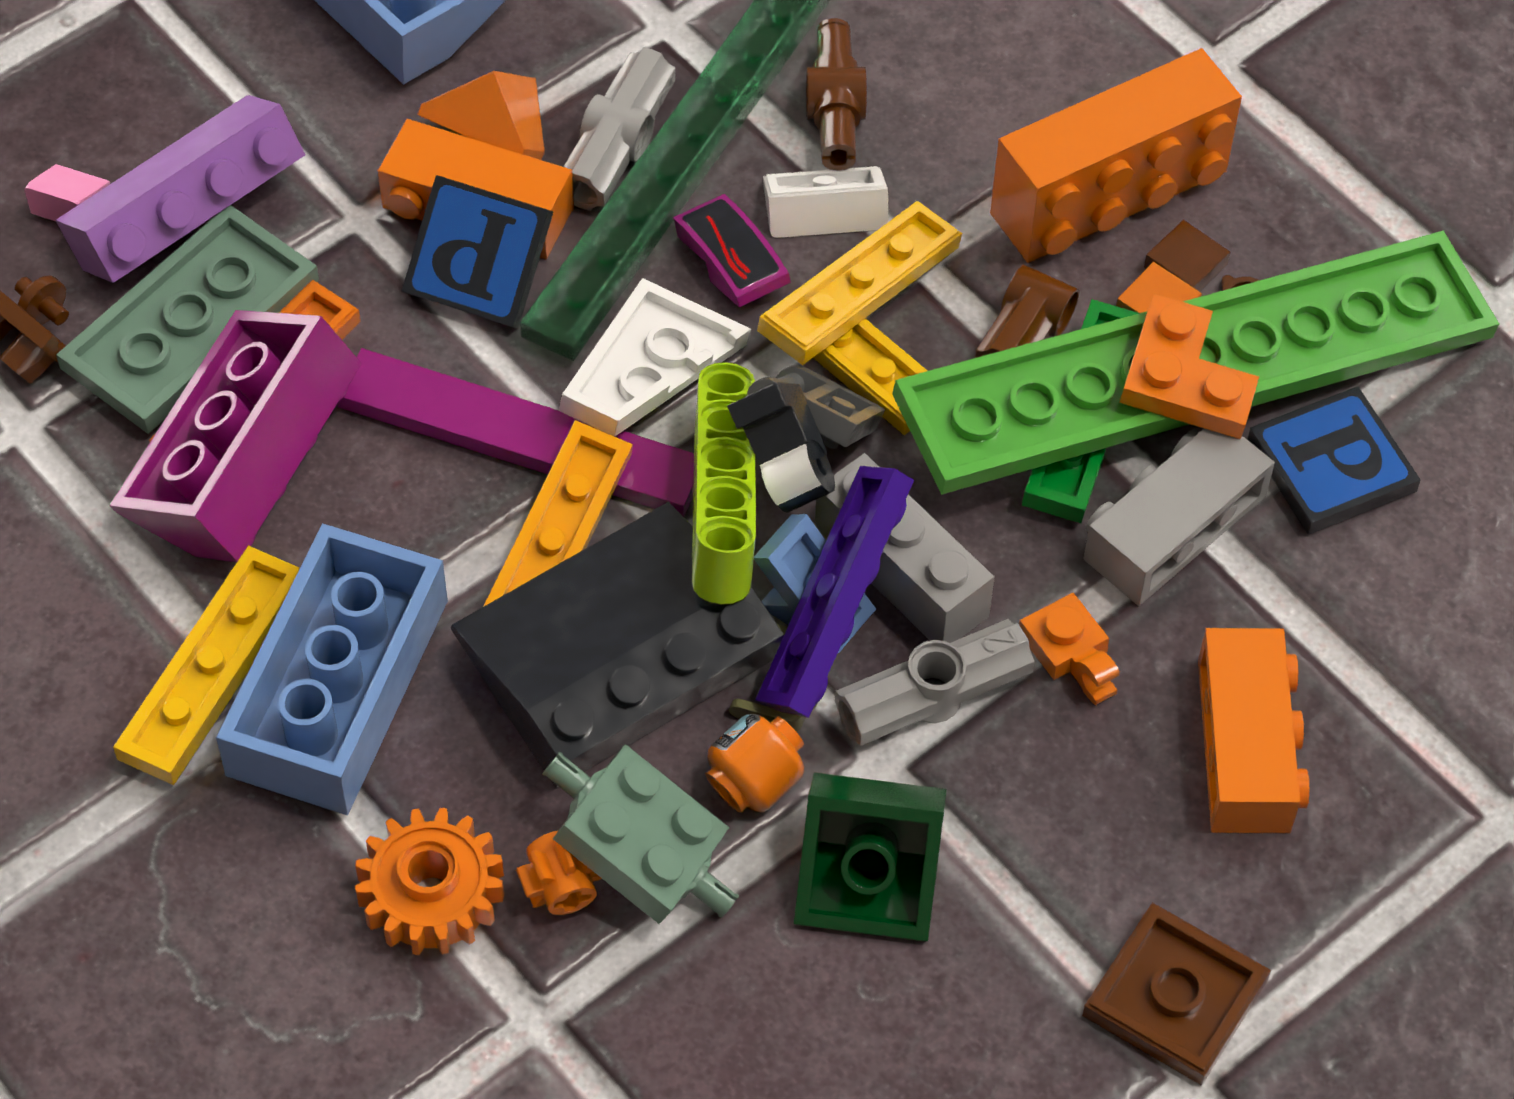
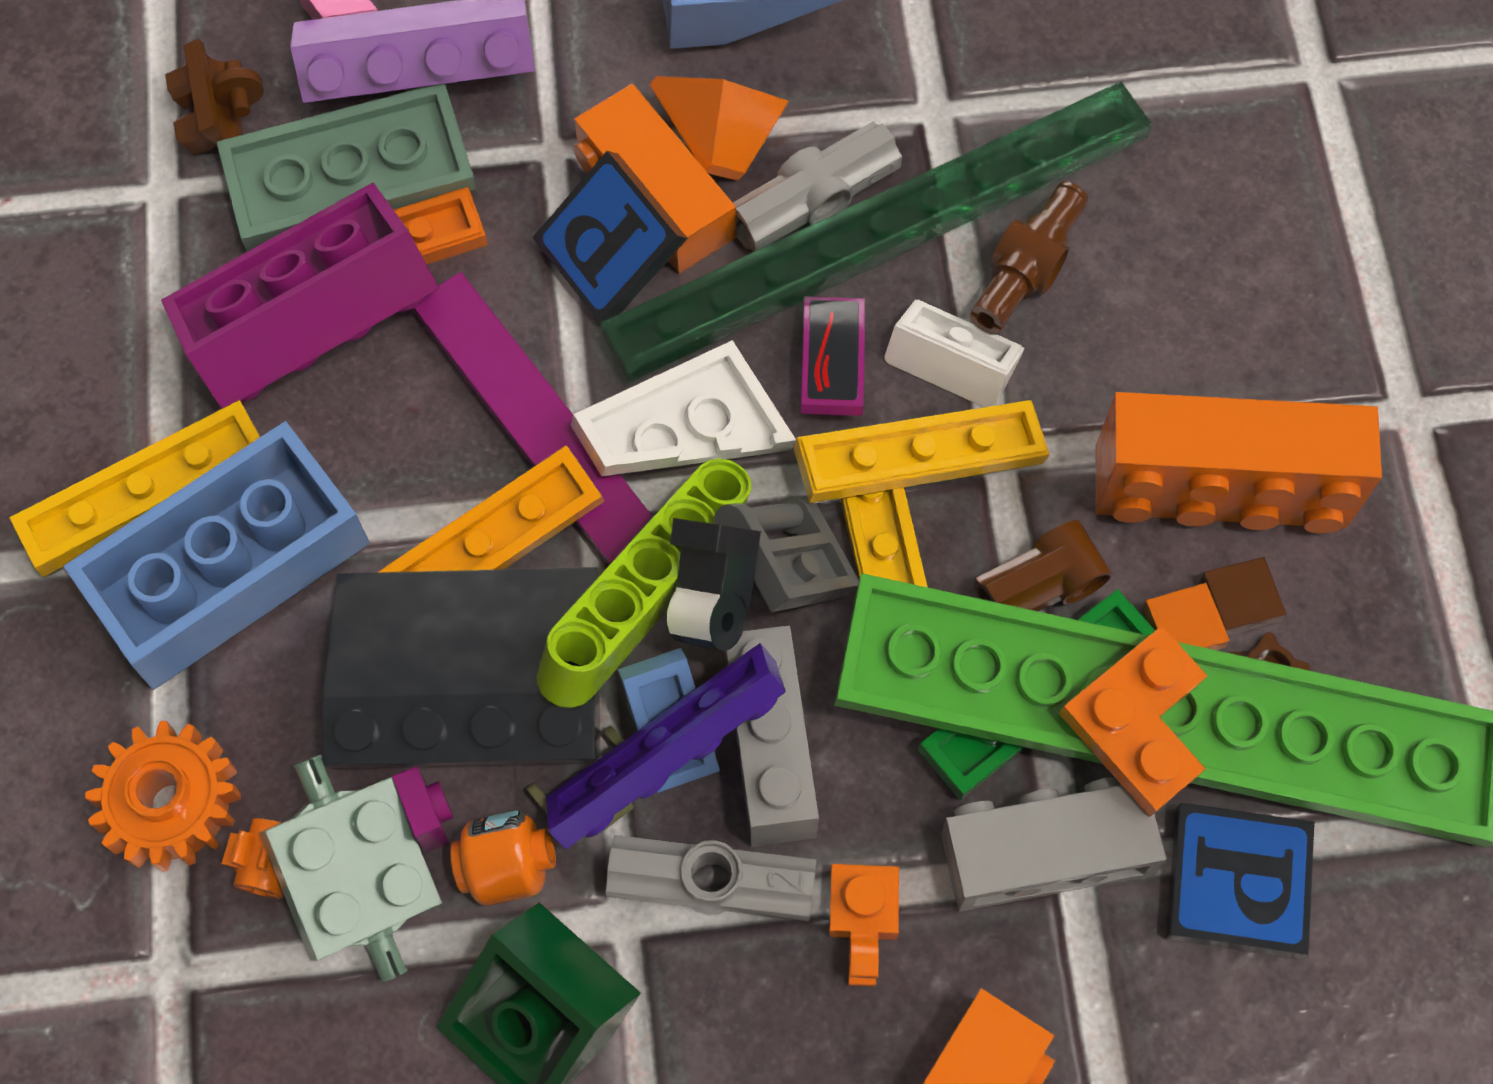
camera: 35 degrees right, 10 degrees up
(666, 756) = (425, 808): none -> magenta plate

